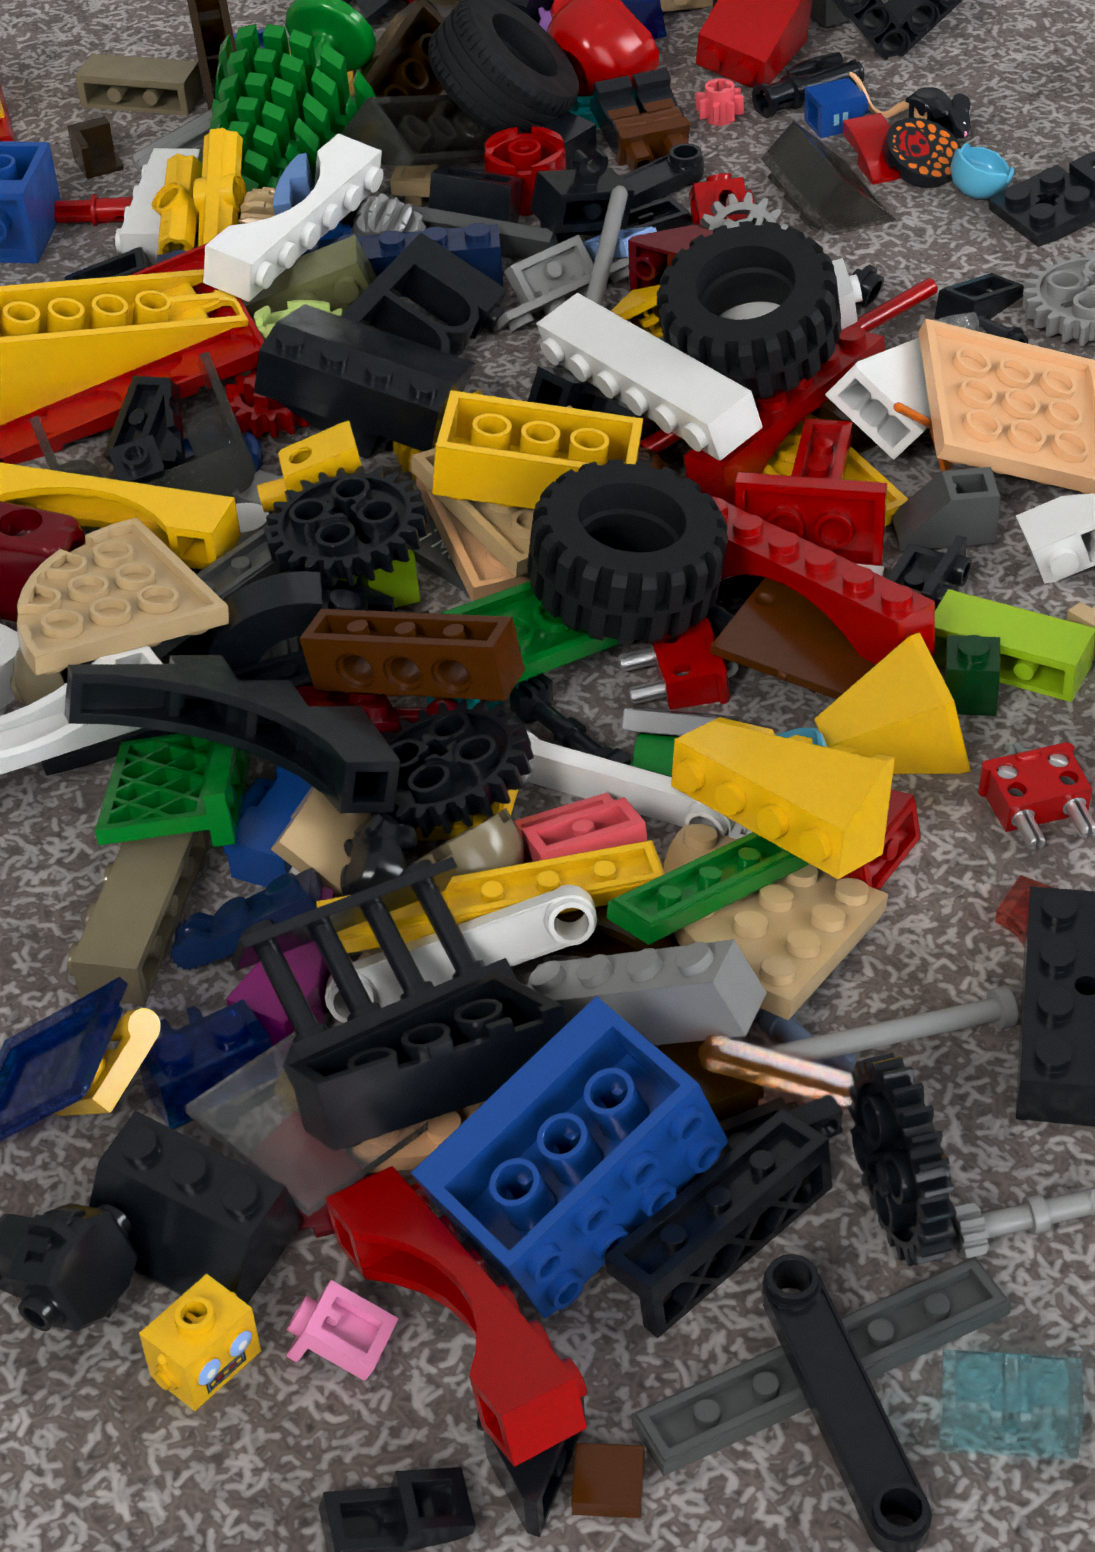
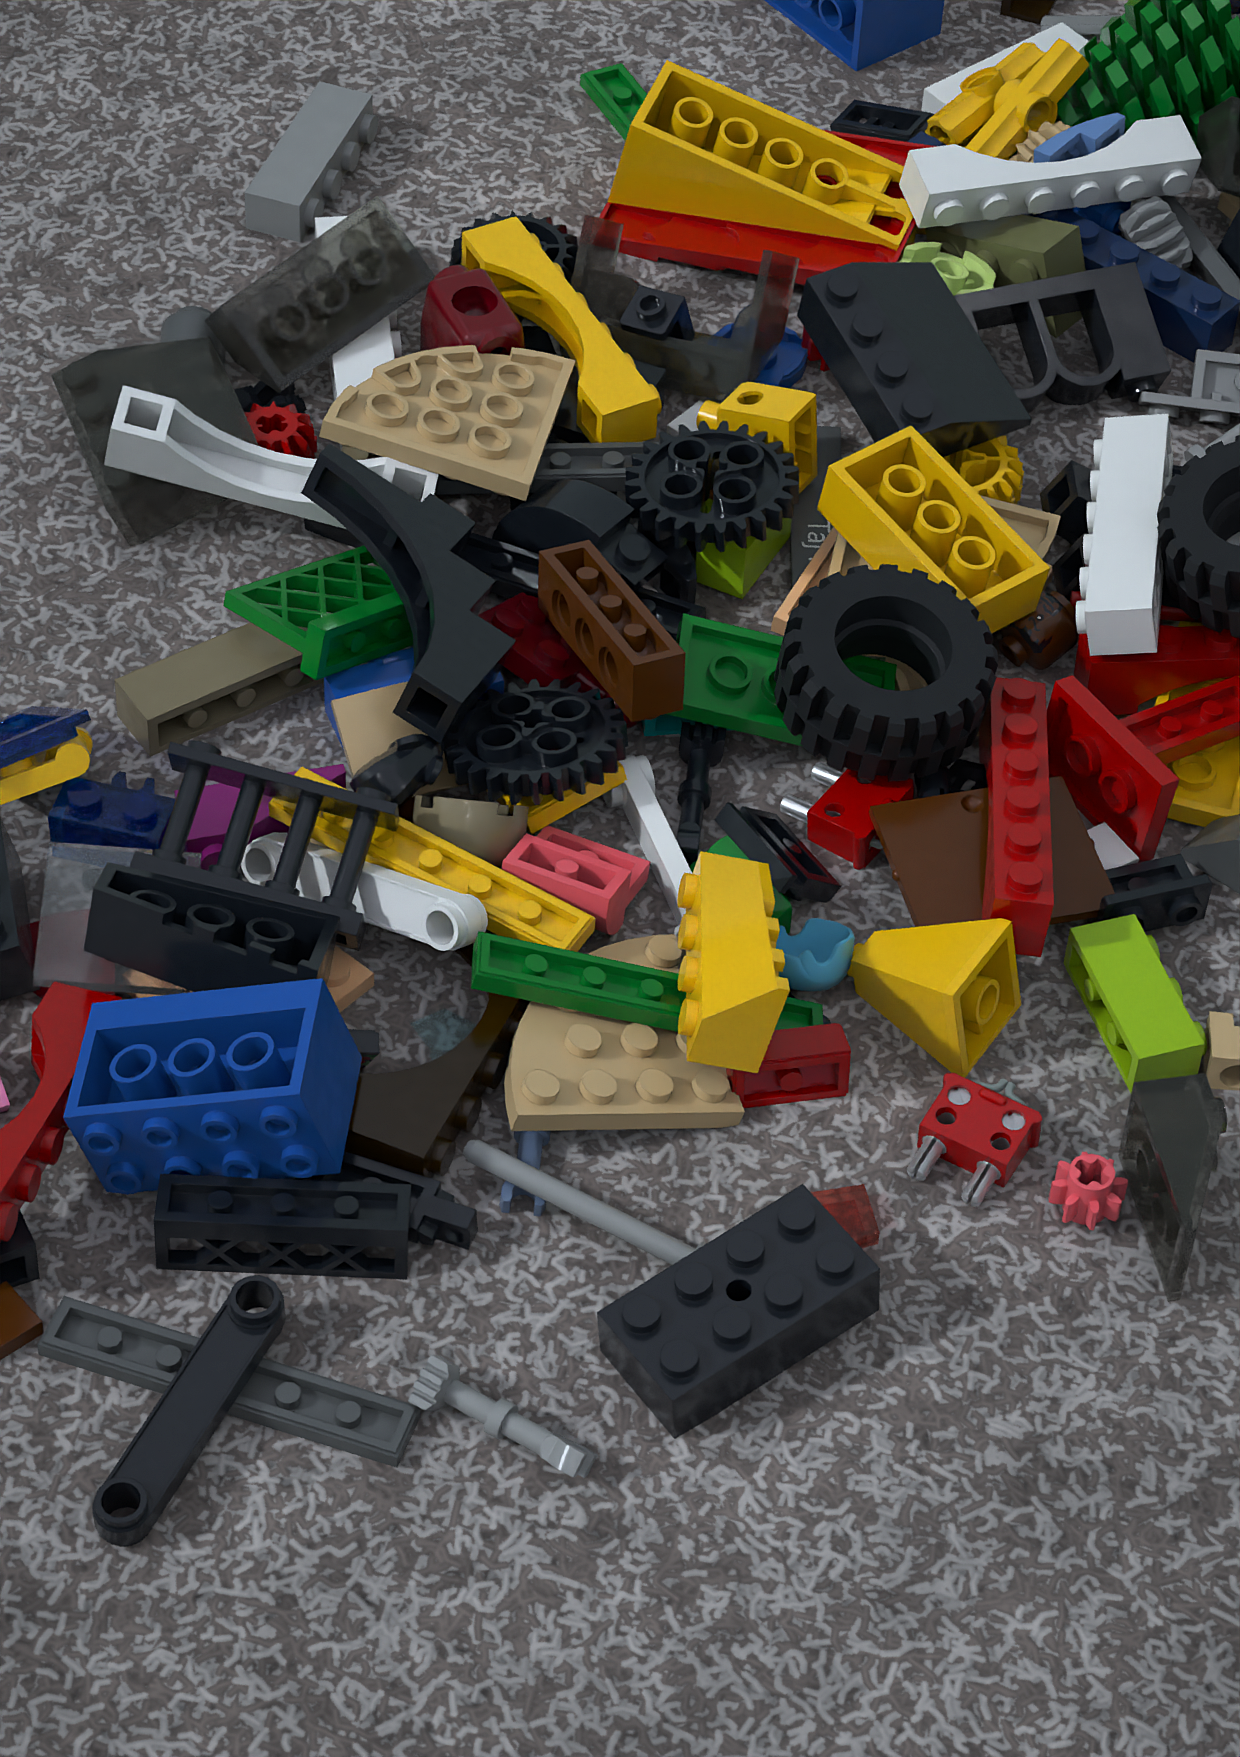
camera: 40 degrees right, 5 degrees up
(95, 210) = (955, 49): red axle -> none
(153, 409) = (720, 287): black wing -> none
(210, 937) = (269, 746): dark blue hinge -> none
(662, 992) = (417, 1022): light grey brick -> none
(774, 1070) = (452, 1160): clear orange axle -> none
(901, 1159) = (417, 1282): black gear -> none
(973, 673) = (1058, 1000): dark green brick -> none
(1011, 1404) = (287, 1511): clear light blue brick -> none

